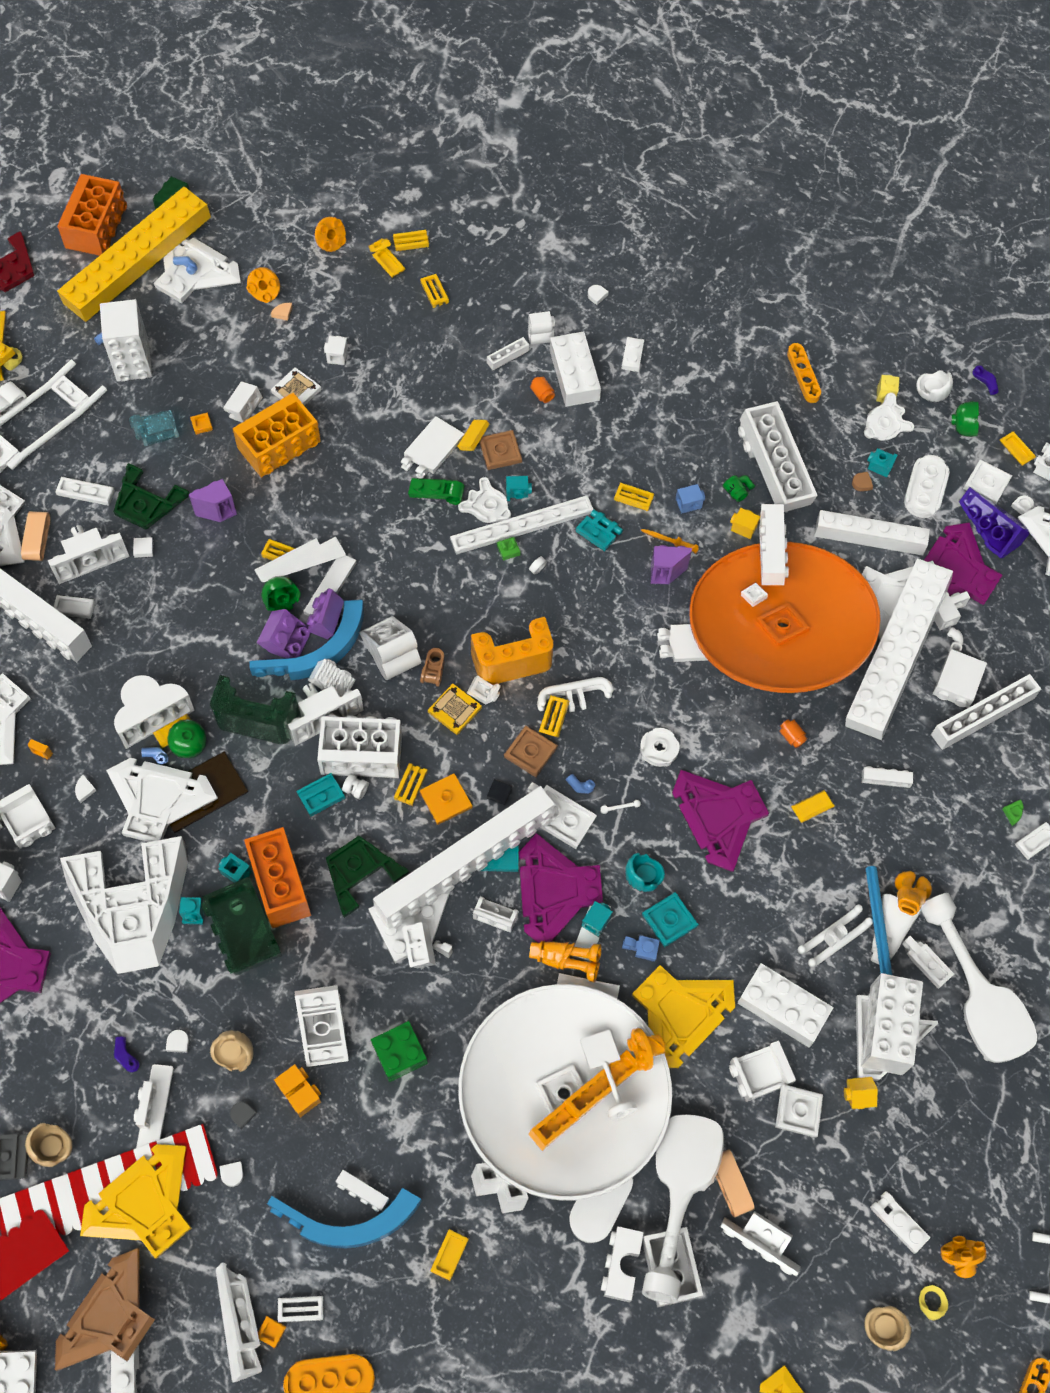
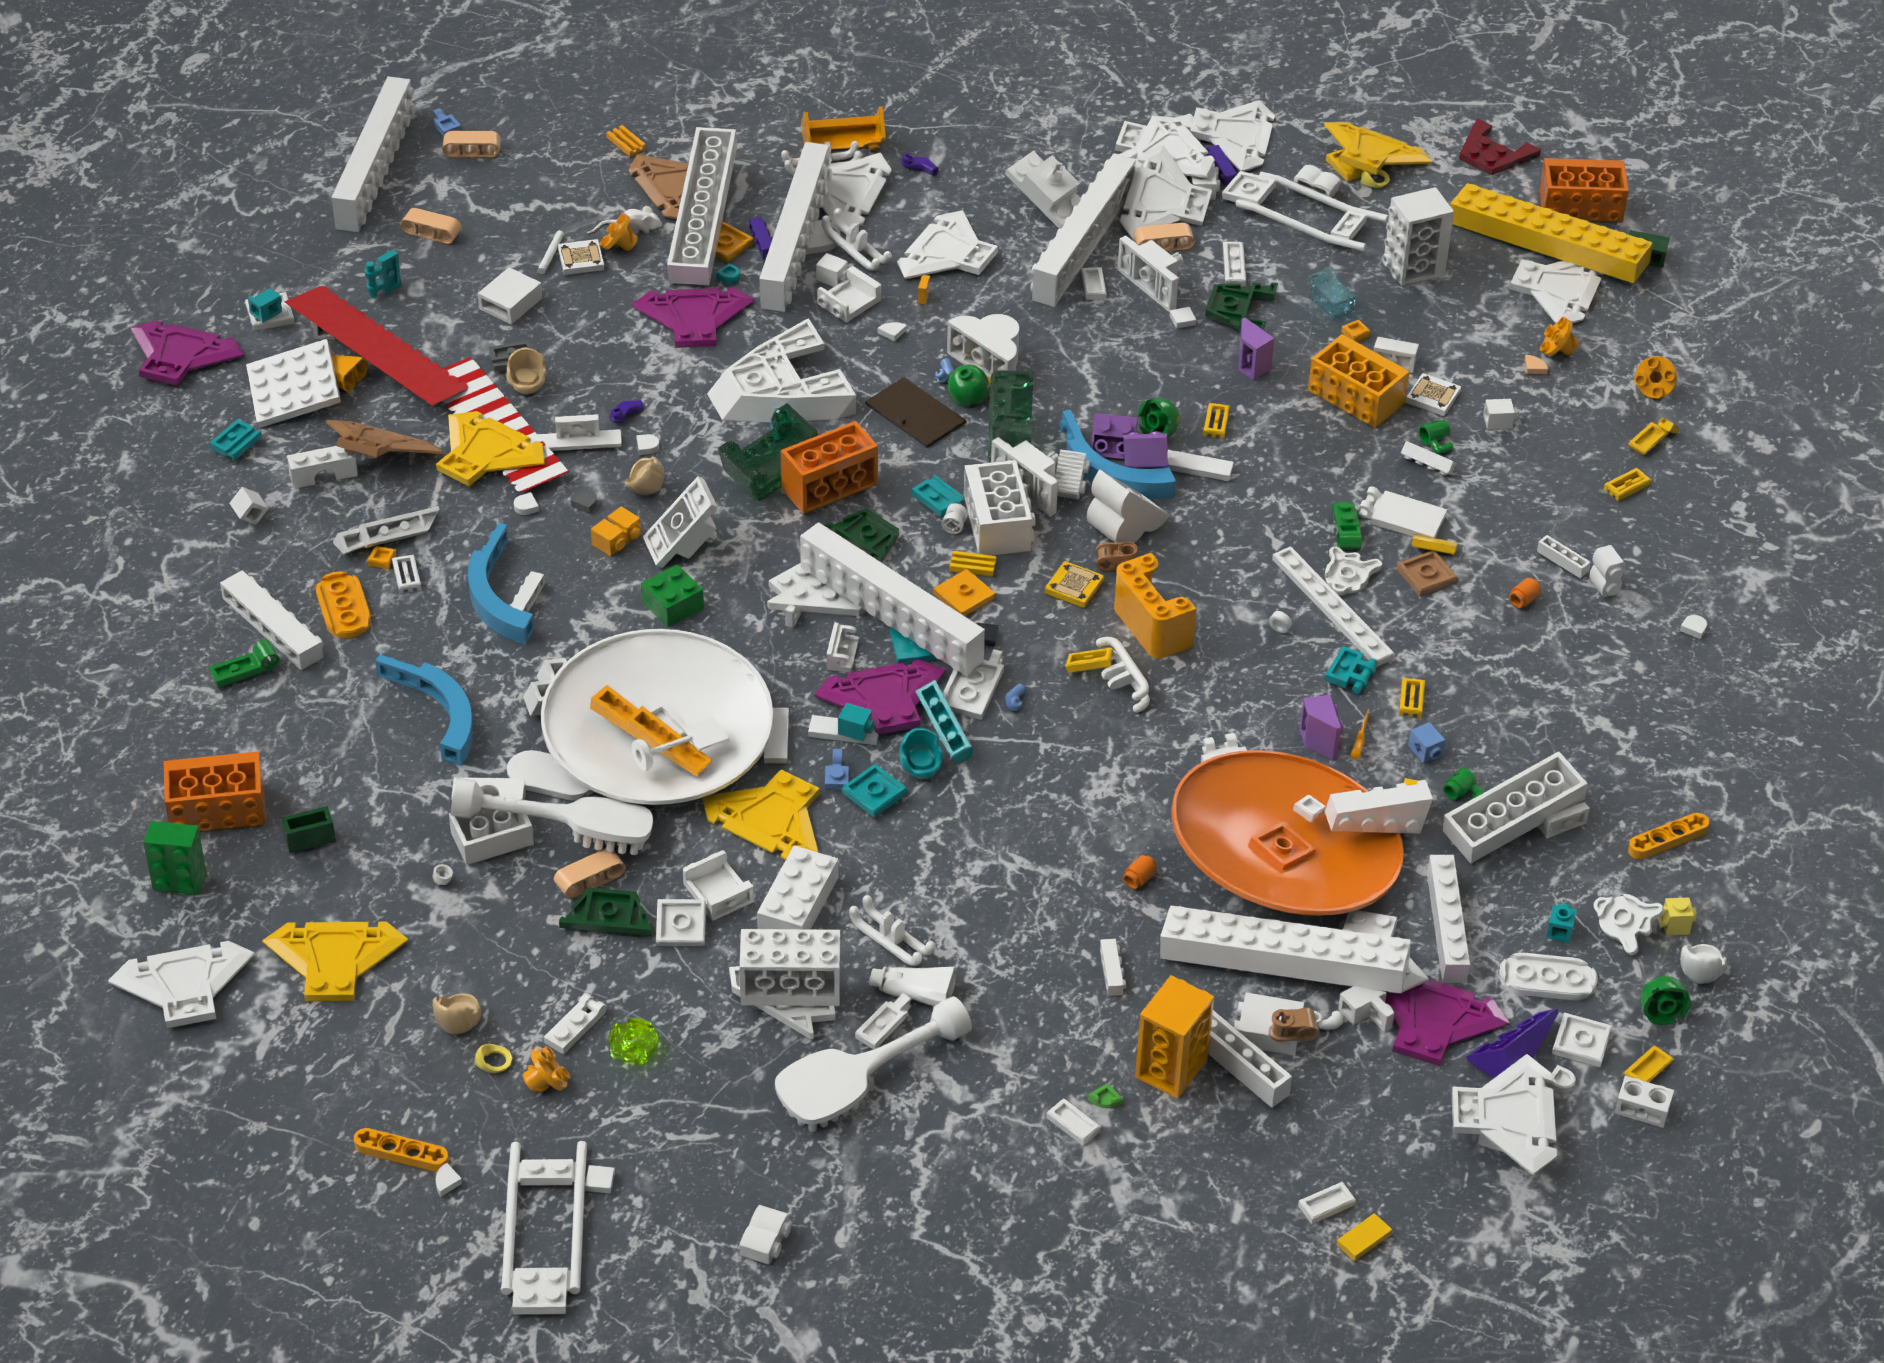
camera: 80 degrees right, 20 degrees down
(157, 796) = (898, 380): white plate -> none
(190, 265) = (1559, 275): medium blue arm -> none
(301, 558) = (1212, 427): white wedge -> none
(345, 400) = (1434, 432): none -> green piece
(374, 412) = (1429, 458): none -> white piece
(410, 239) = (1694, 452): yellow tile -> none
(419, 945) = (787, 586): white hinge -> none
(449, 1255) = (476, 670): yellow tile -> none
(483, 690) = (1102, 599): white bracket -> none
(500, 1279) = (444, 689): none -> dark azure arch
(508, 548) = (1295, 597): bright green tile -> none
(517, 487) = (1377, 589): teal brick -> none
(530, 751) = (1043, 653): medium nougat tile -> none
(558, 956) = (807, 708): light orange piece -> none
(575, 369) = (1567, 615): white brick -> none
(604, 809) = (992, 724): white hinge -> none
(604, 845) = (945, 722): none -> teal brick
(632, 354) = (1619, 670): white plate -> none
(645, 1048) = (712, 761): light orange plate -> none
(663, 757) = (1074, 765): white plate -> none
(714, 1317) = (447, 874): none -> white hinge
(719, 815) = (1015, 821): magenta plate -> none
(764, 1238) = (532, 905): white bracket -> none
(779, 1173) = (608, 912): none -> dark green wing
(812, 806) = (1053, 905): yellow tile -> none
(861, 1093) = (711, 969): yellow brick -> none
(862, 482) = (1526, 909): medium nougat tile -> none
(878, 920) = (915, 961): dark azure axle -> none
(911, 899) = (954, 980): light orange piece -> none
(916, 1179) = (633, 1052): none -> clear neon green plate
(981, 660) = (1296, 1024): none -> medium nougat piece
(987, 378) = (1749, 1026): dark purple arm -> none
(996, 742) = (1174, 1036): none -> light orange brick

